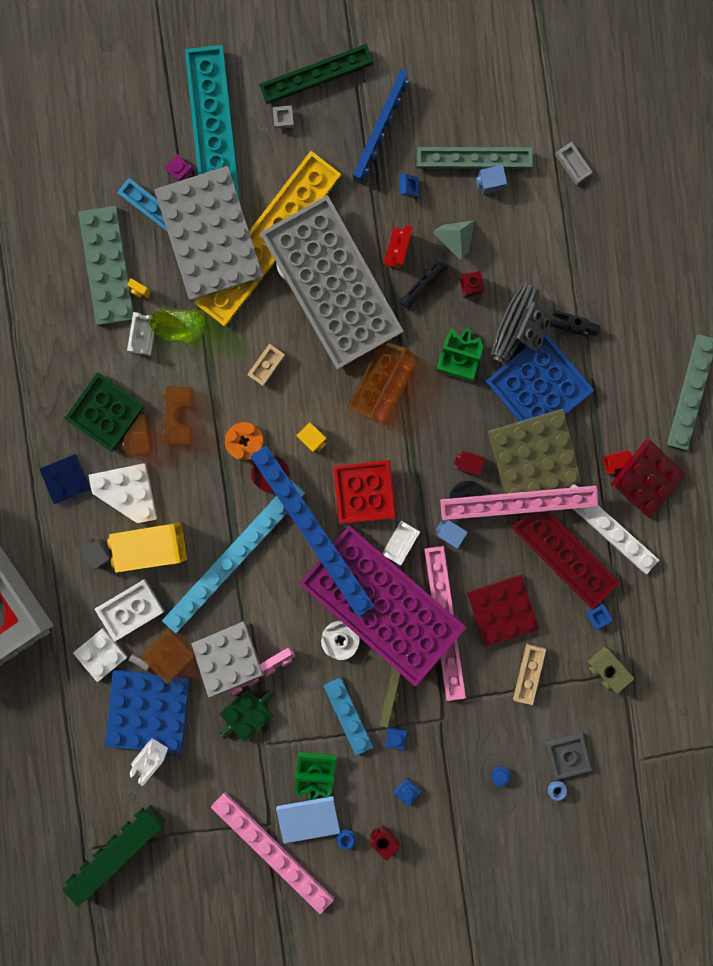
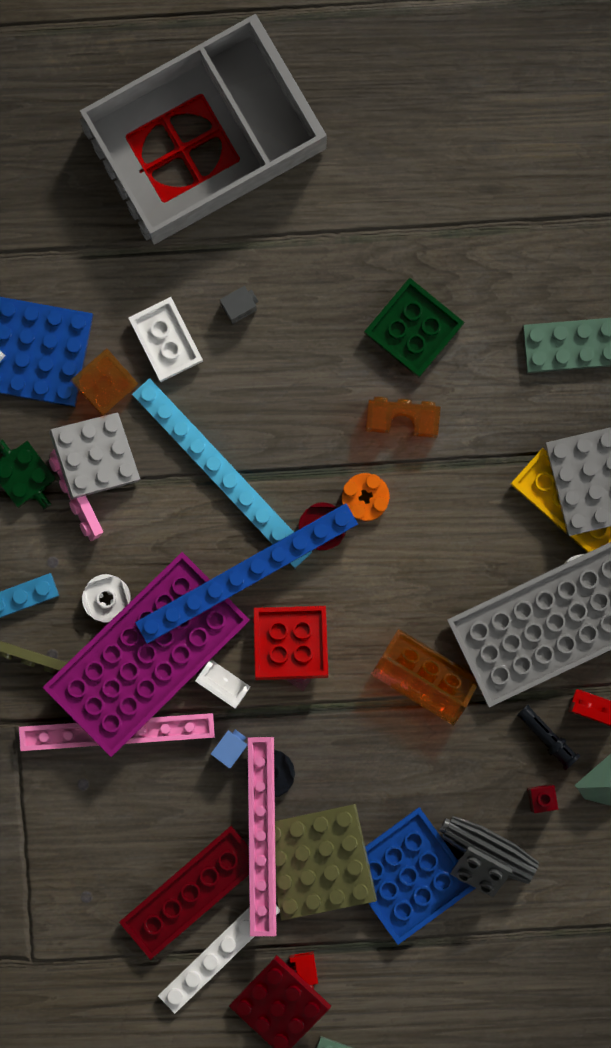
camera: 90 degrees right, 5 degrees down
(65, 479) = (334, 272): clear blue plate -> none
(100, 654) = (113, 299): white plate -> none
(126, 491) = (313, 346): white plate -> none
(138, 289) = (563, 380): yellow plate -> none
(138, 438) = (378, 366): clear orange slope -> none
(138, 661) = (98, 349): light grey piece -> none
(141, 335) = (507, 380): white hinge -> none
(147, 547) = (242, 367): yellow slope -> none
(178, 324) = (516, 427): clear neon green hair -> none
(266, 365) = (458, 531): tan plate -> none
(312, 438) = (363, 582): yellow brick -> none
(460, 355) = (453, 777): green plate -> none
(469, 462) = (317, 778): dark red brick -> none
(502, 610) = (126, 807): dark red plate -> none
(529, 674) = (43, 835): tan plate -> none
(575, 324) = (481, 939): black hinge -> none
(599, 616) = (109, 929): blue plate -> none
(620, 676) = (29, 950): olive brick -> none

